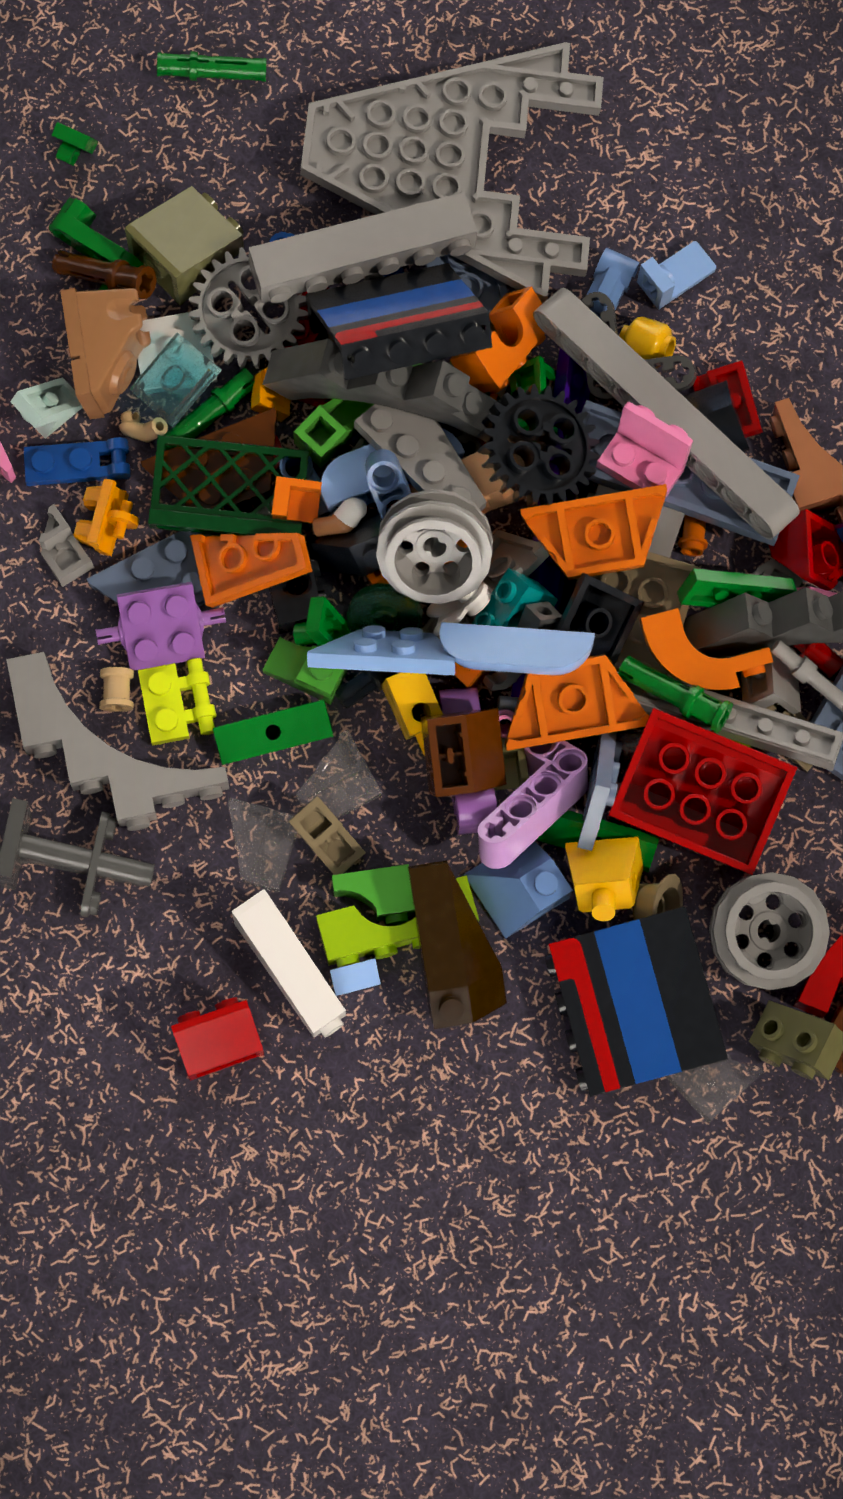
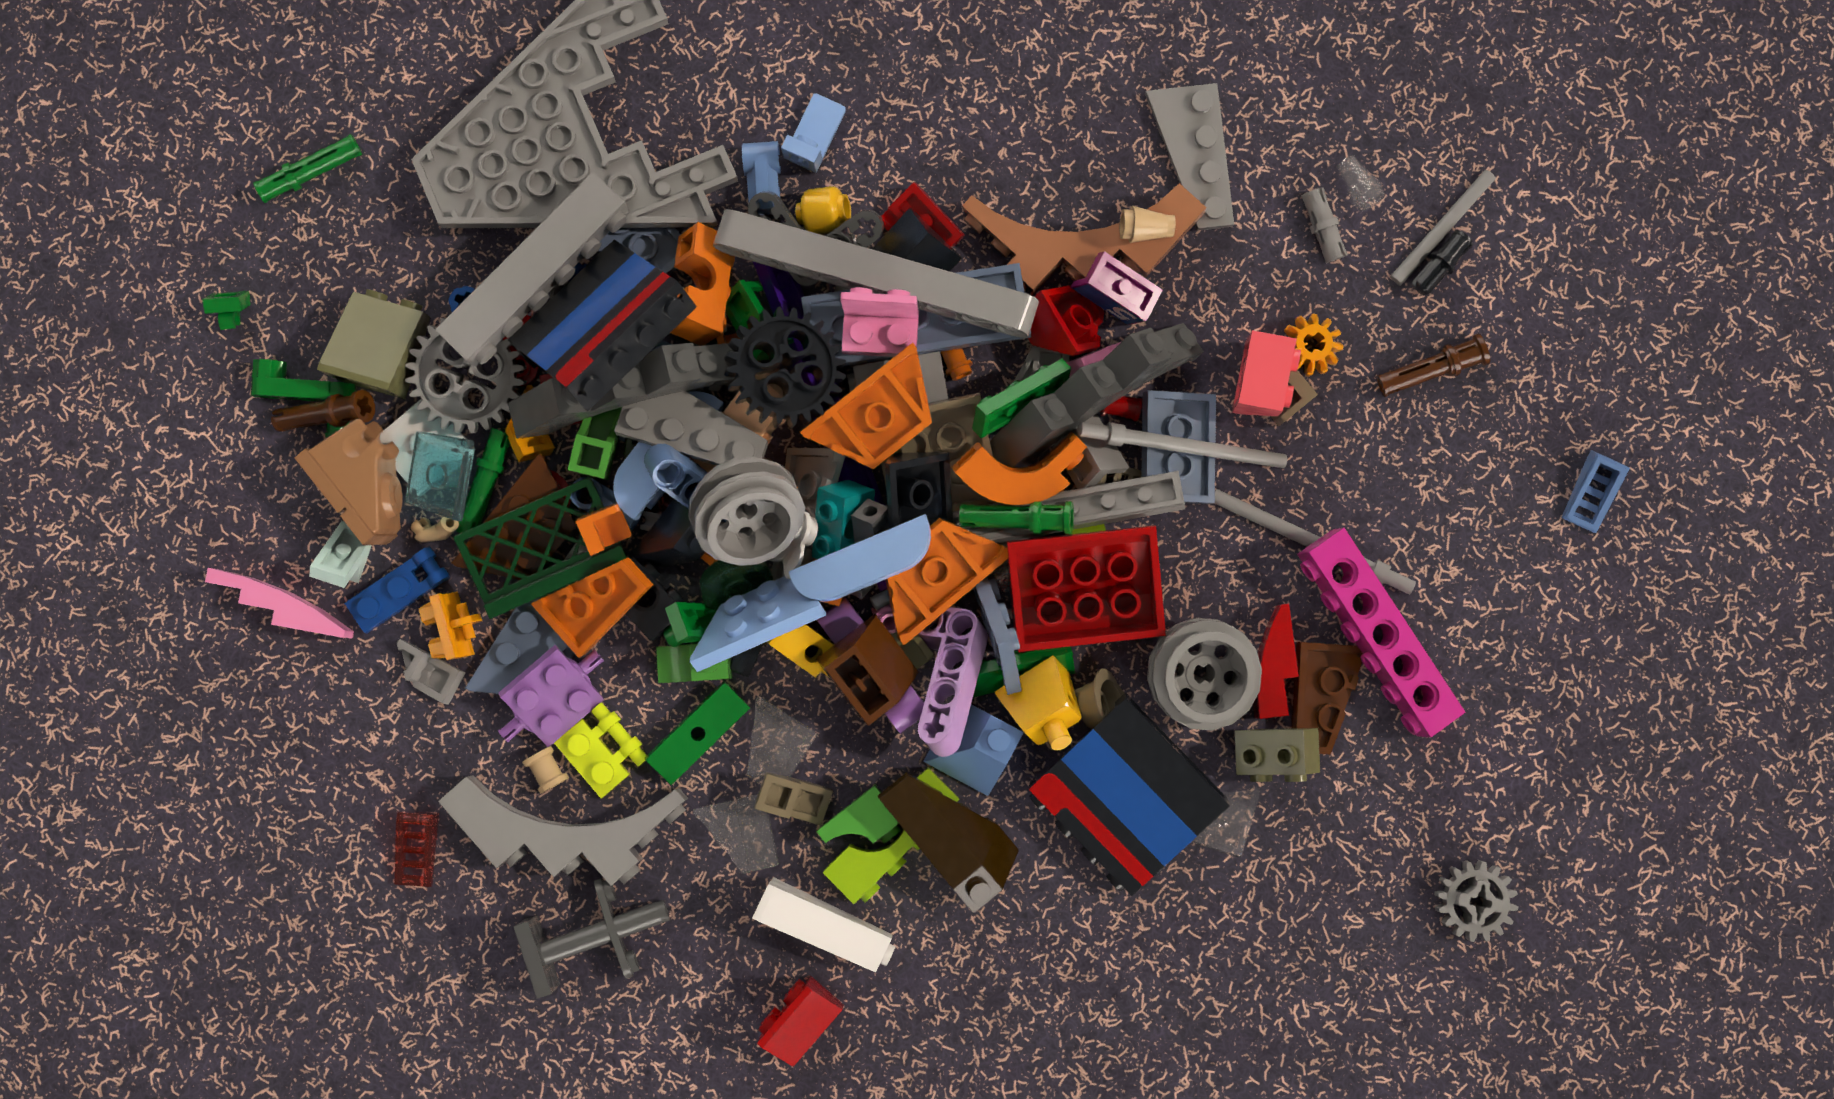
camera: 20 degrees left, 10 degrees up
(342, 520) = (654, 522): arm -> none
(355, 977) = (882, 901): light blue sticker -> none

